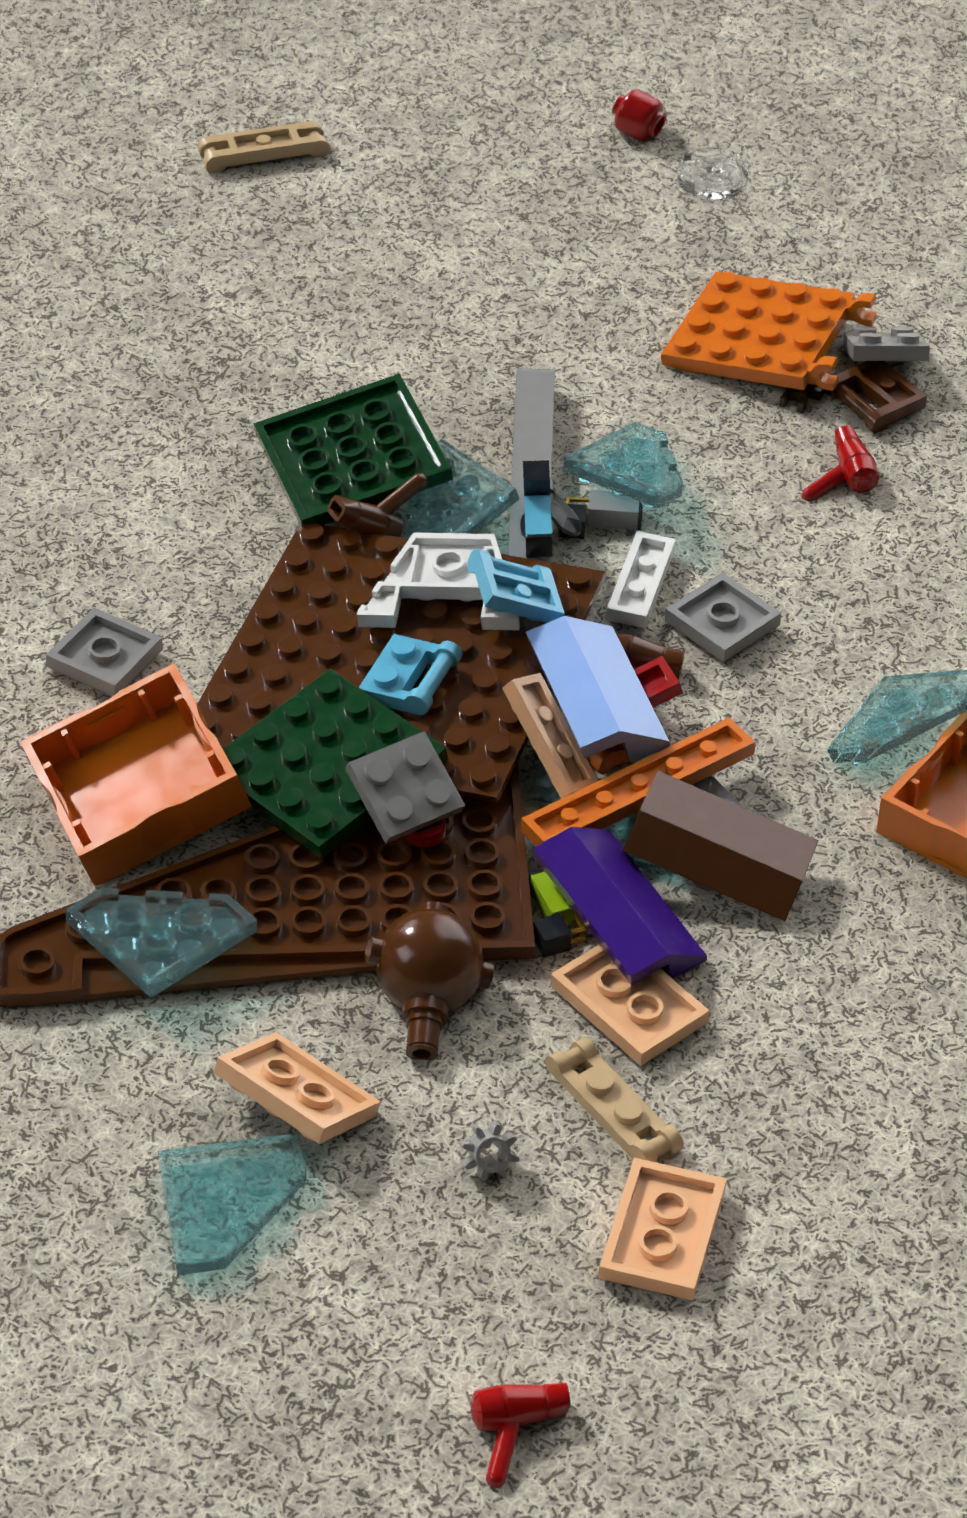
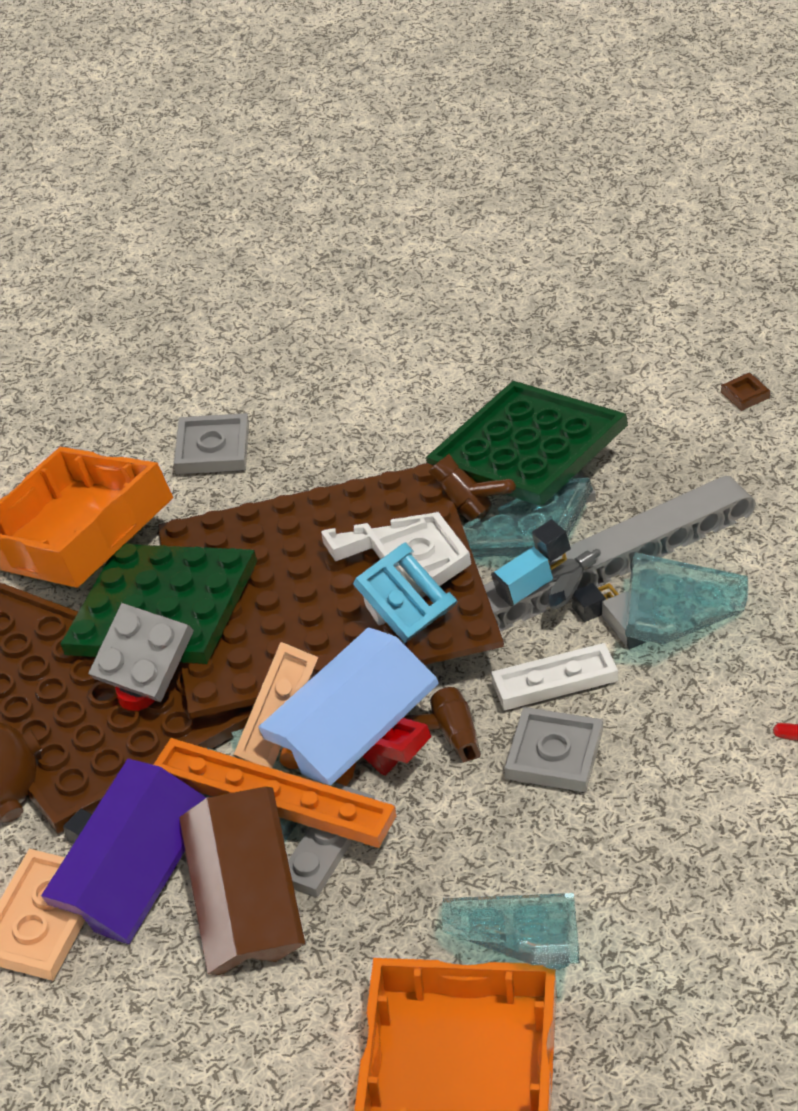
camera: 65 degrees right, 0 degrees up
(400, 314) = (745, 391): none -> reddish brown tile
(401, 666) = (284, 592): medium azure plate -> none

